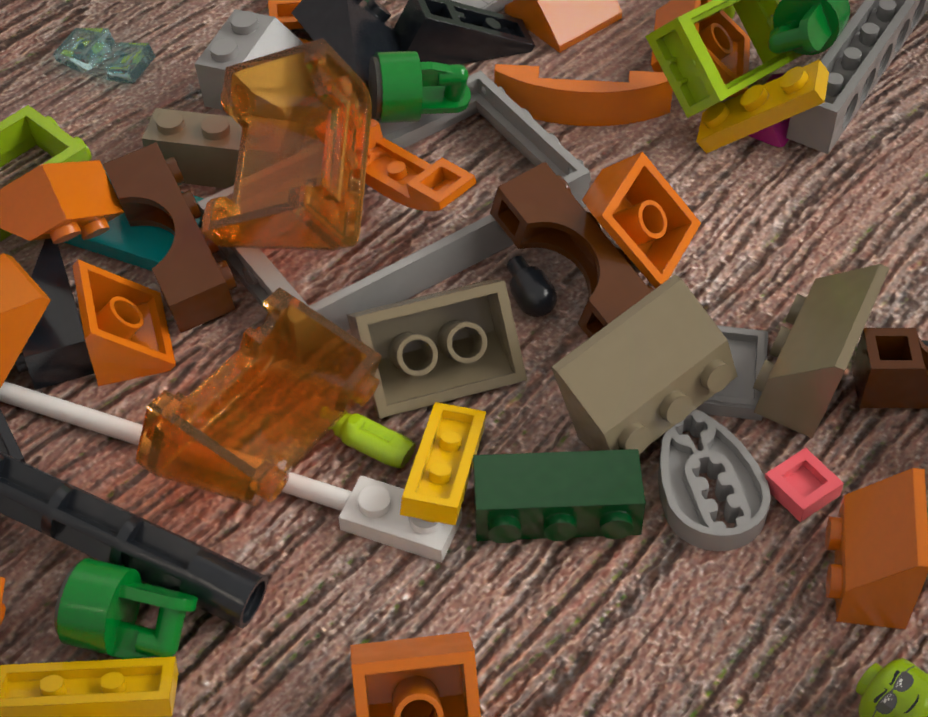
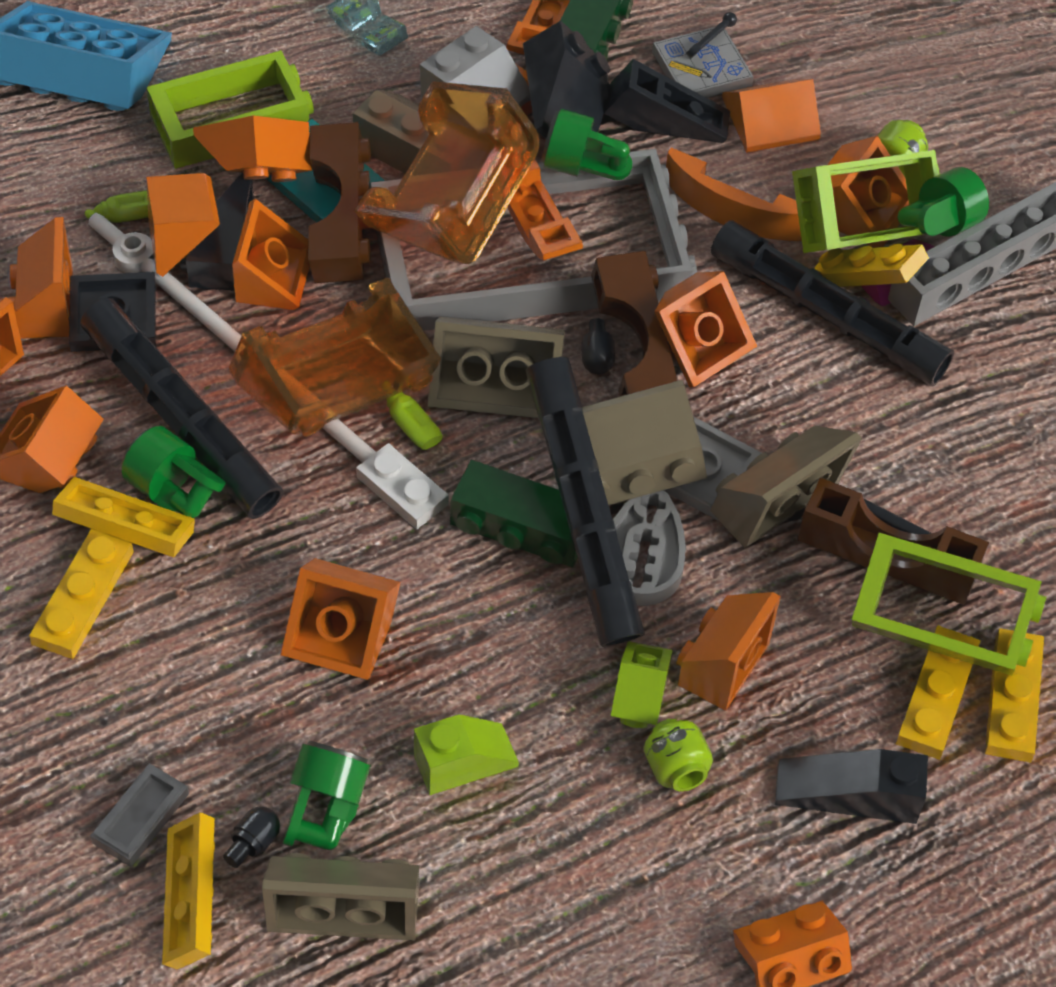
camera: 20 degrees right, 5 degrees up
(443, 464) = (448, 455): yellow plate -> none
(662, 479) = (584, 501): none -> black piece
(742, 158) = (853, 315): none -> black piece
(803, 484) = (711, 577): coral plate -> none
(810, 637) = (641, 684): none -> lime slope

